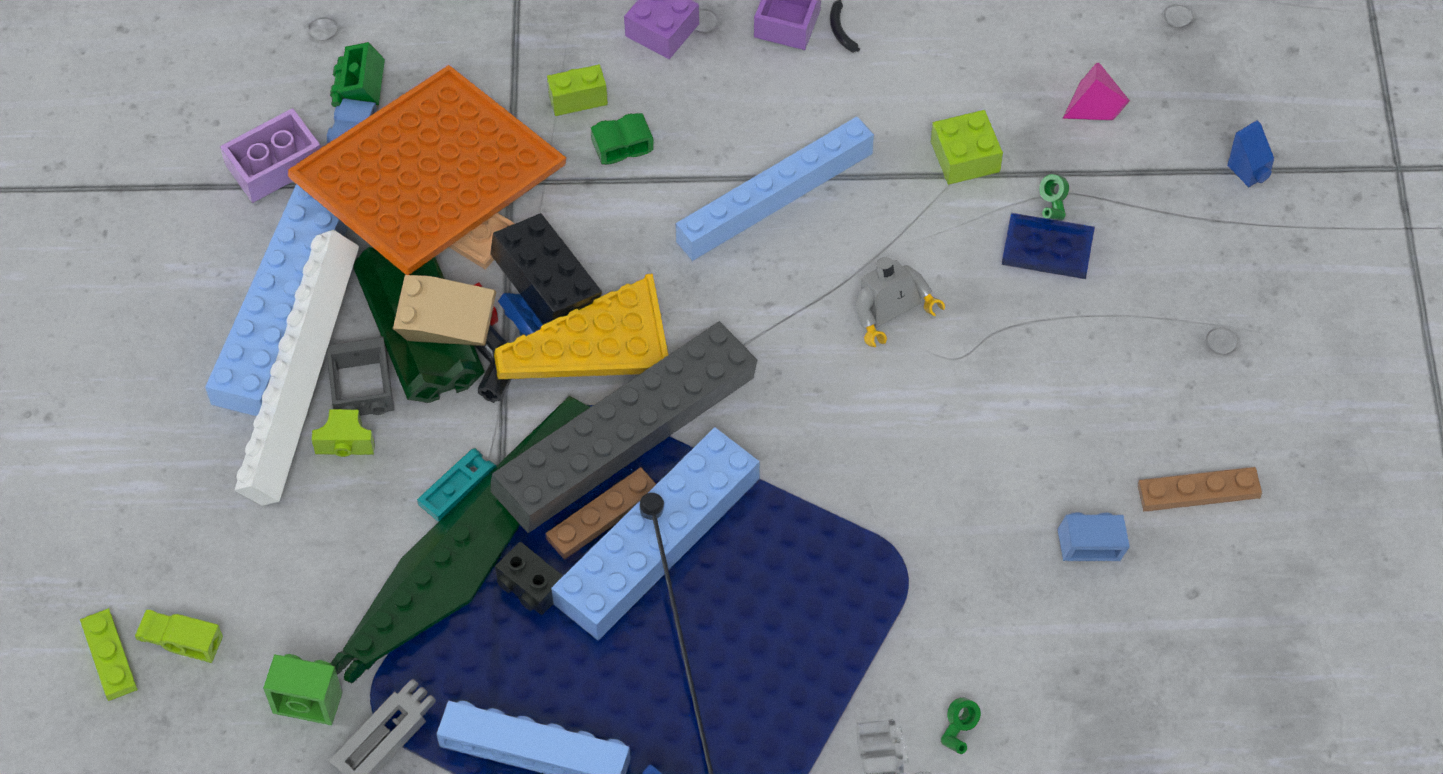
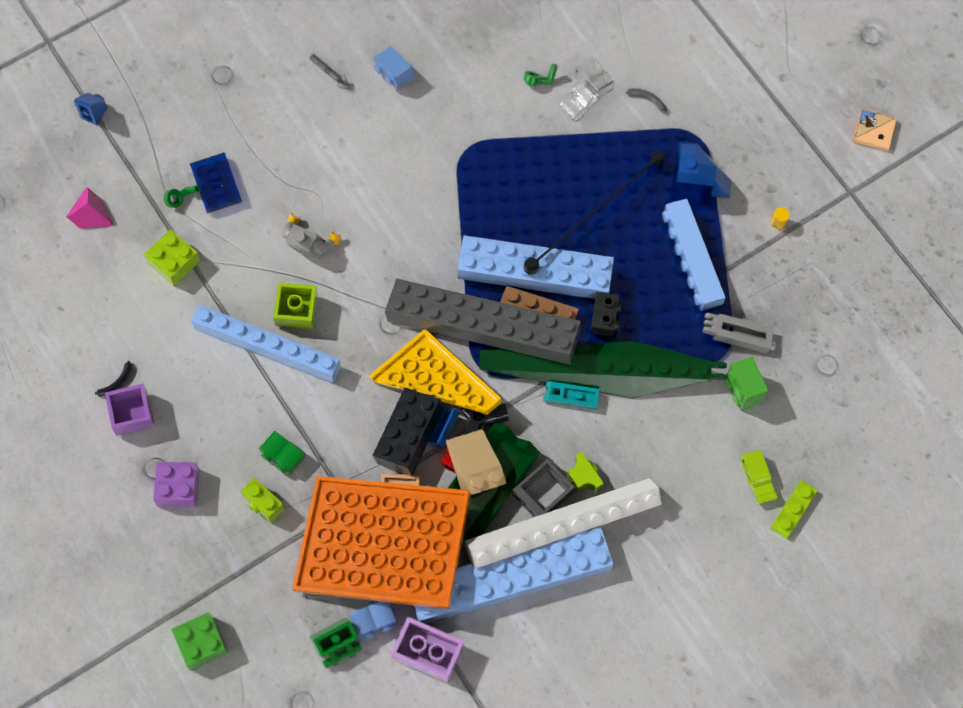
camera: 125 degrees left, 10 degrees up
(802, 239) = (295, 305): none -> lime brick
(1117, 468) = (342, 82): none -> dark grey piece
(1199, 489) = (327, 40): medium nougat plate -> none

